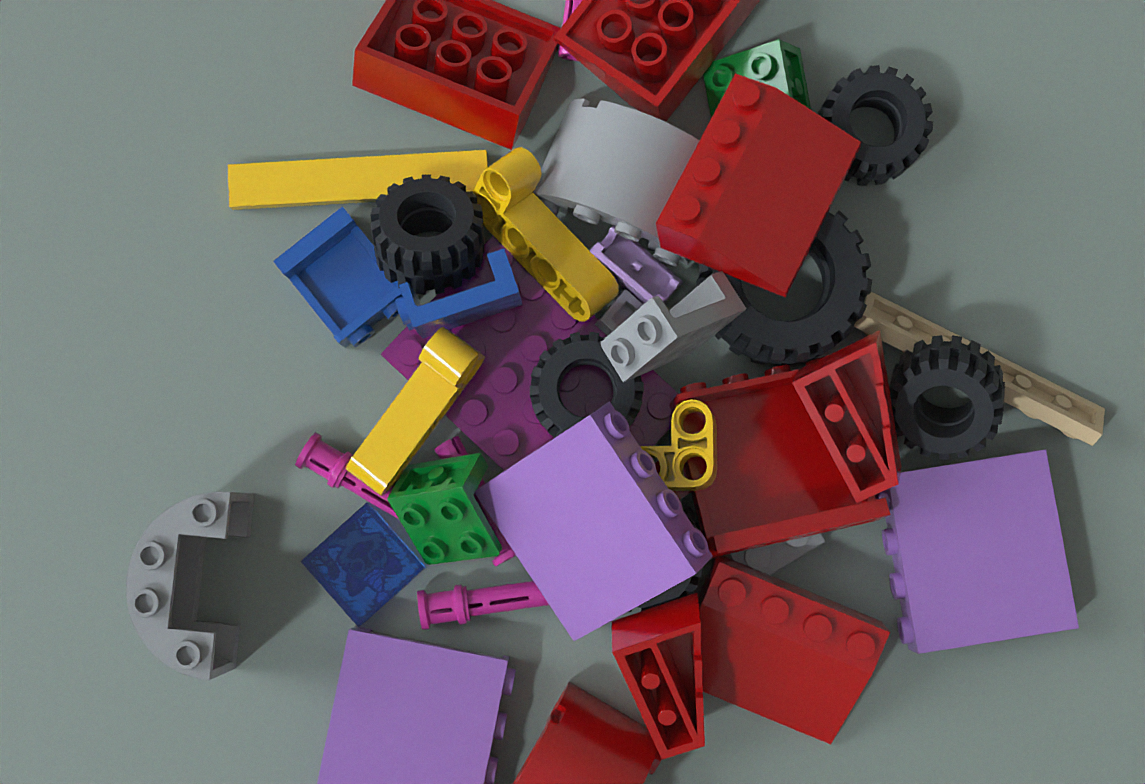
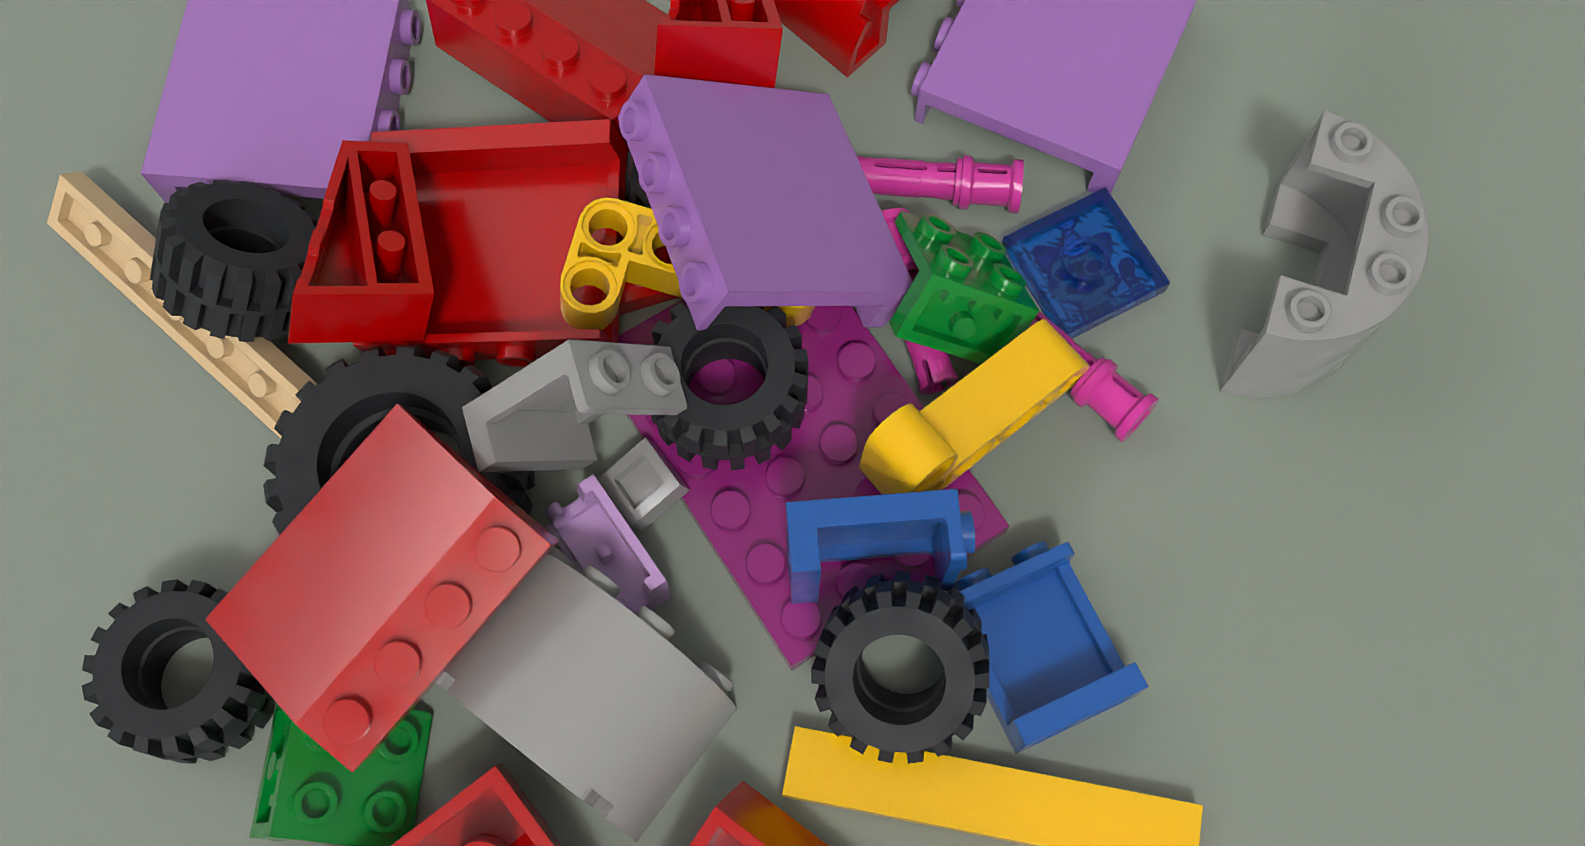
camera: 170 degrees left, 15 degrees down
(540, 238) = (734, 622): yellow beam -> none

